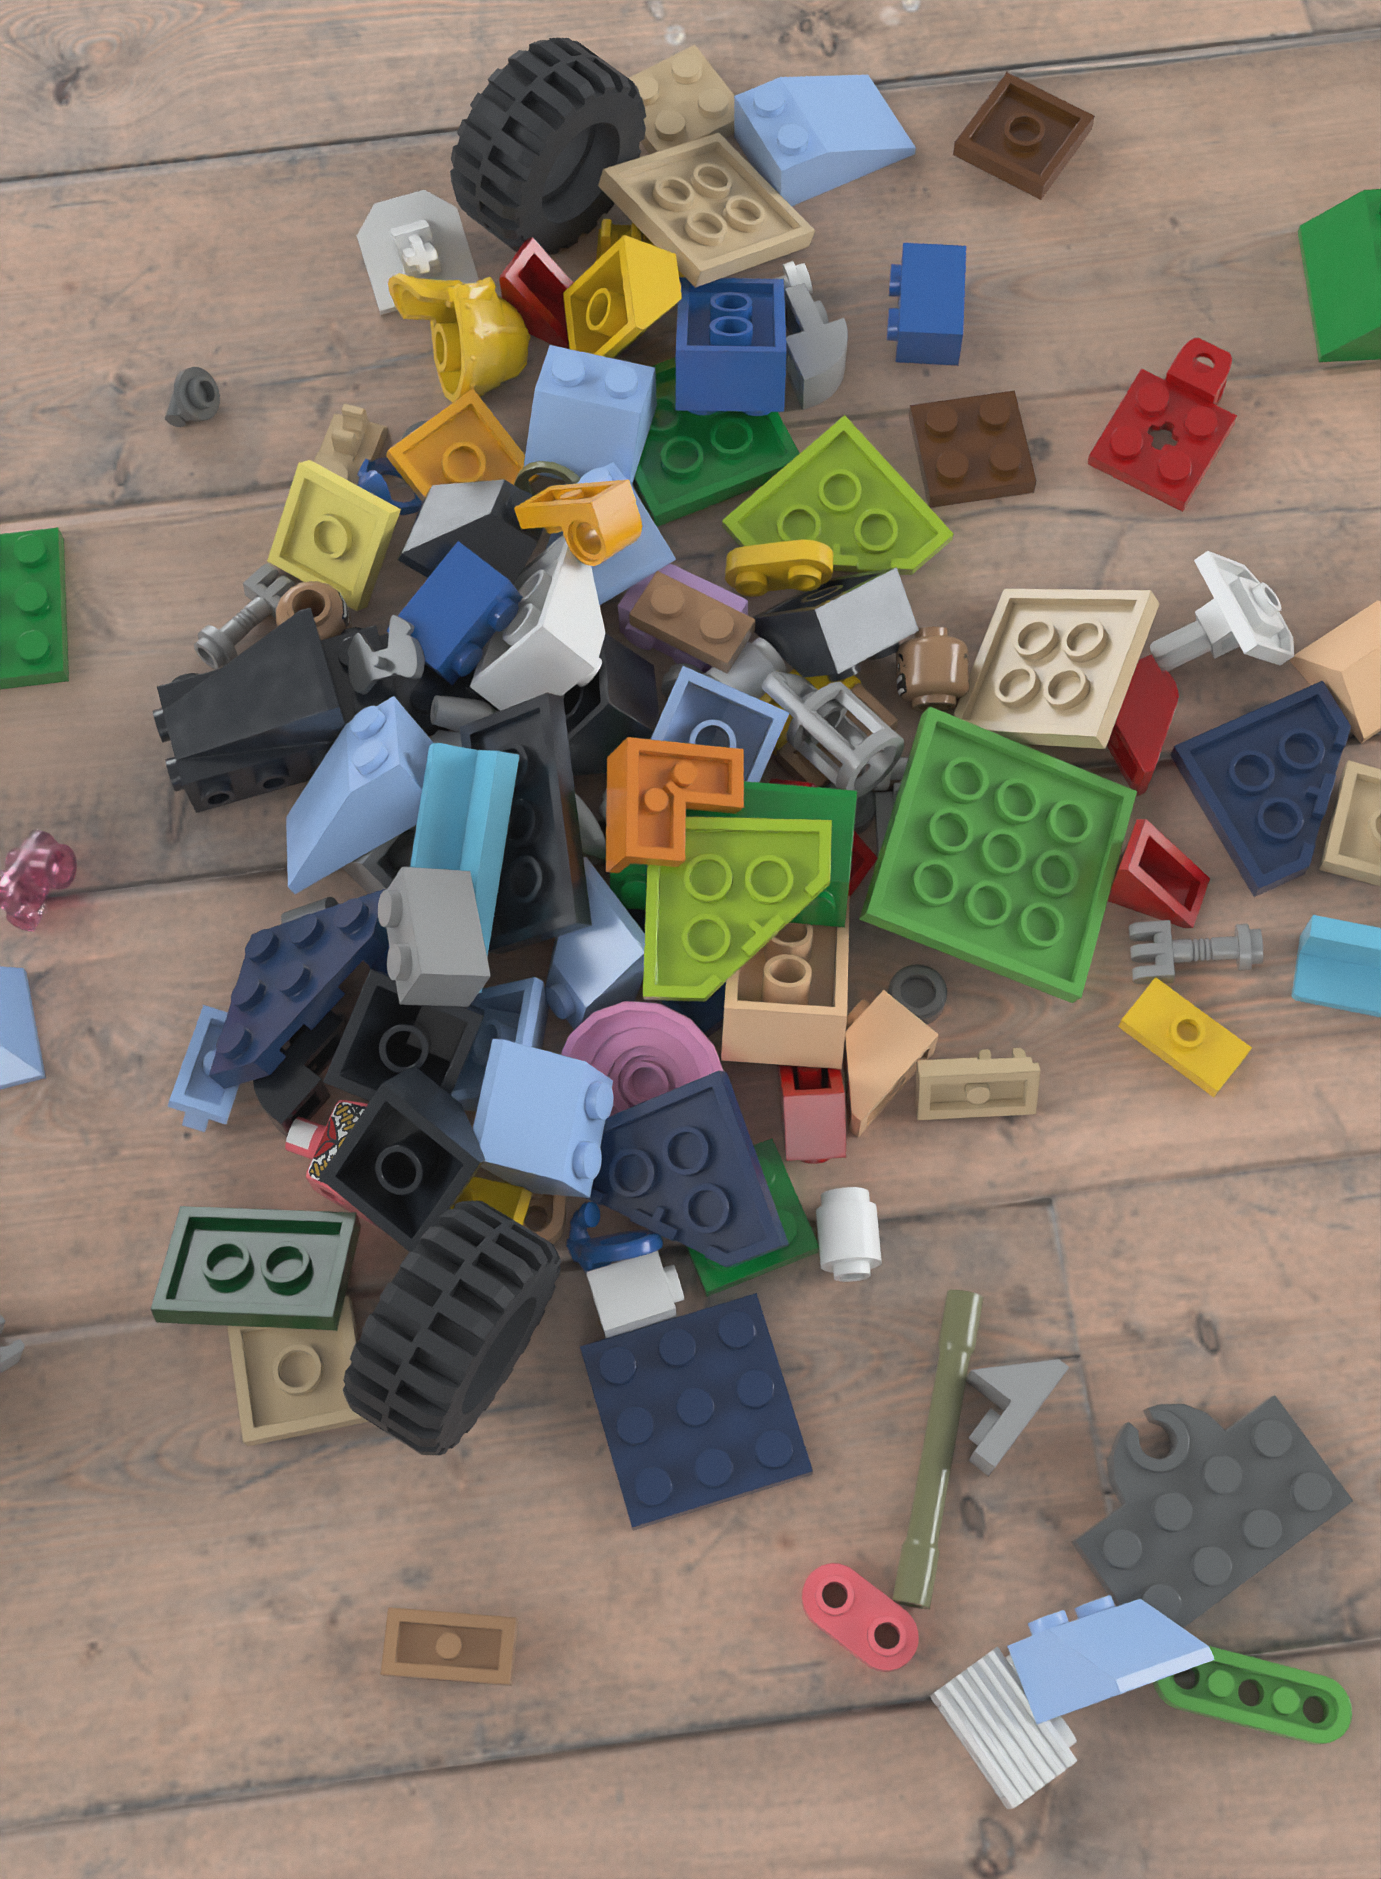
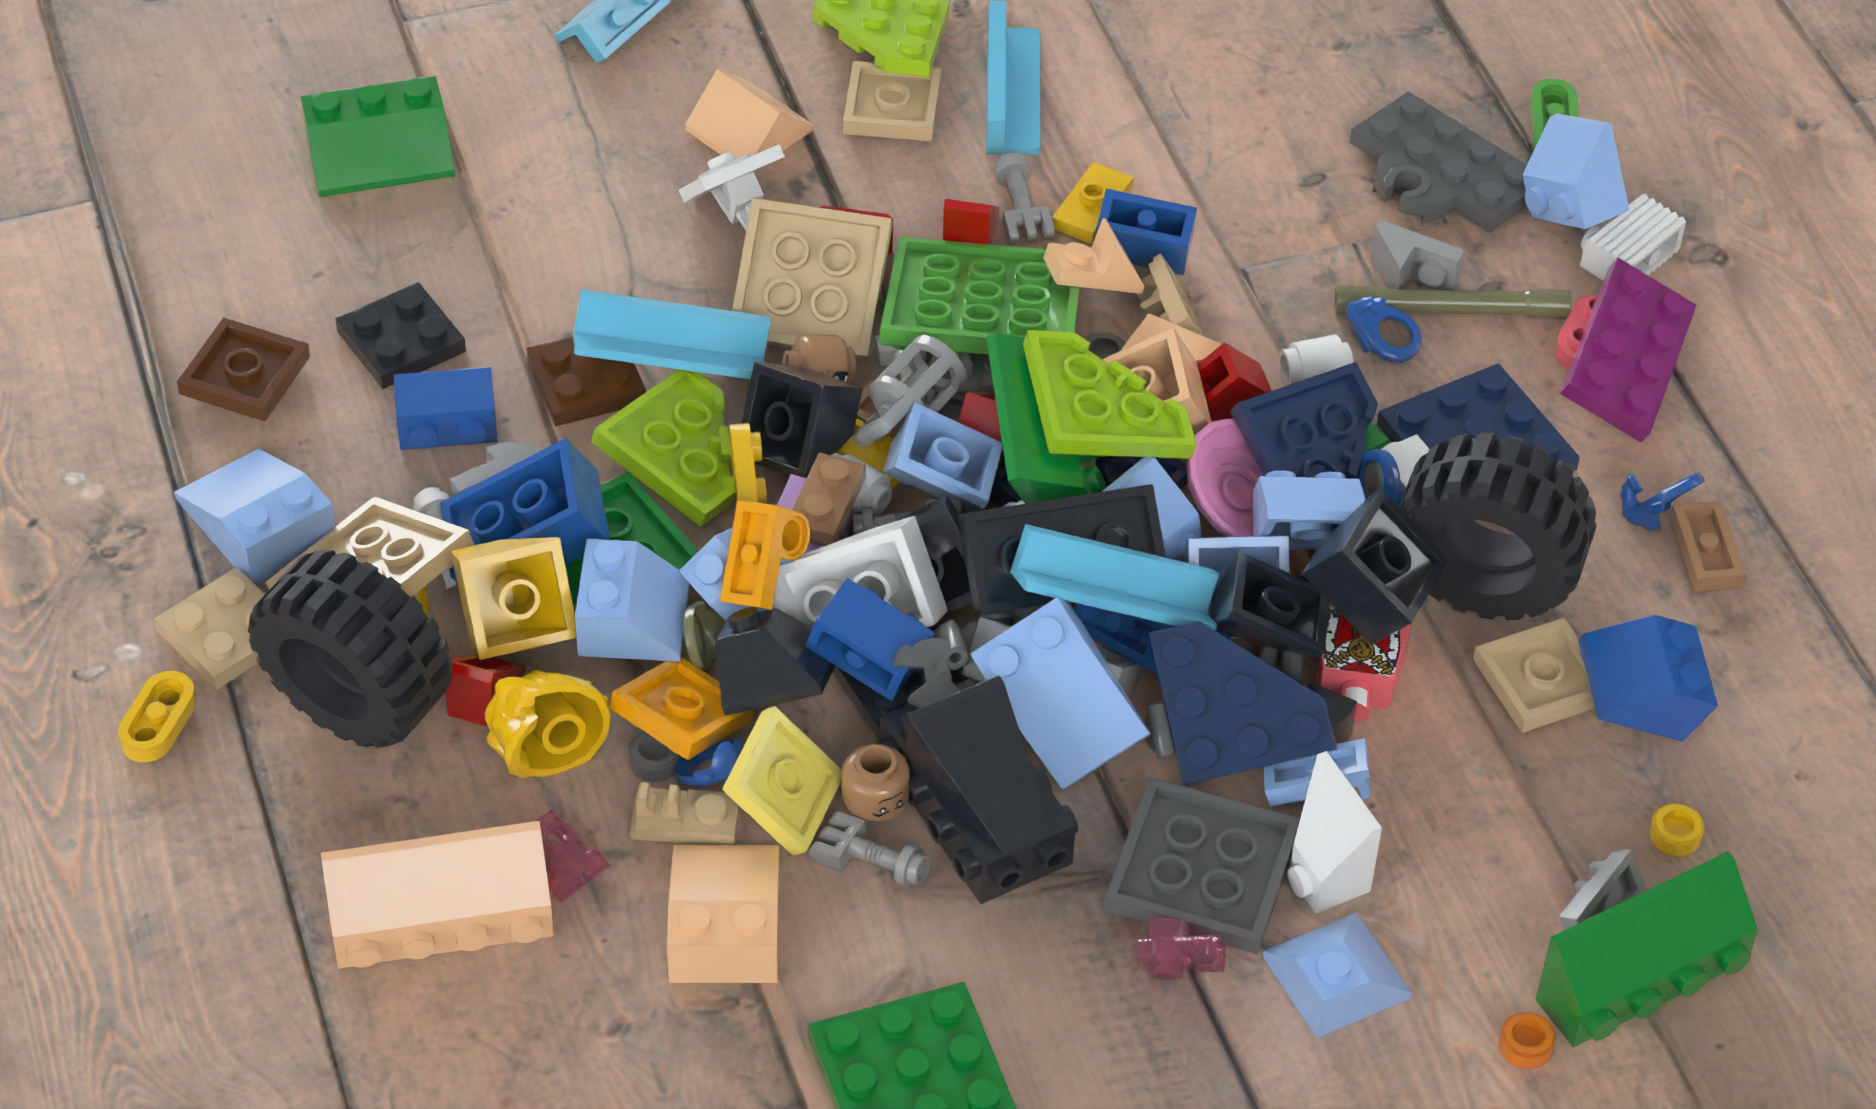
camera: 105 degrees left, 20 degrees down
(49, 1464) = (1676, 829): none -> yellow tile
(107, 1051) = (1334, 841): none -> white slope
(138, 927) = (1203, 864): none -> dark grey plate
(193, 397) = (634, 951): dark grey plate -> none
(207, 471) = (723, 914): none -> light nougat slope
(238, 1481) = (1649, 676): none -> blue slope
(257, 1268) = (1476, 703): plate -> none
(273, 233) = (438, 894): none -> light nougat slope
(315, 339) = (571, 863): none -> clear pink plate
(414, 238) = (441, 787): white piece -> none
(434, 937) = (1194, 567): light grey brick -> none
(530, 1594) = (1647, 513): none -> blue piece
(558, 22) = (153, 720): none -> yellow plate
(652, 788) = (1040, 439): orange panel -> none
(802, 1654) = (1628, 349): none -> magenta plate
(912, 1318) = (1365, 320): none -> blue piece
(979, 515) = (669, 334): none -> medium azure panel
(1033, 992) = (1095, 267): none -> light nougat slope
(1061, 283) = (400, 334): none -> black plate
(1092, 1067) = (1150, 228): none -> blue brick
(1179, 404) = (528, 242): red plate -> none
(1268, 782) = (870, 166): dark blue plate -> none

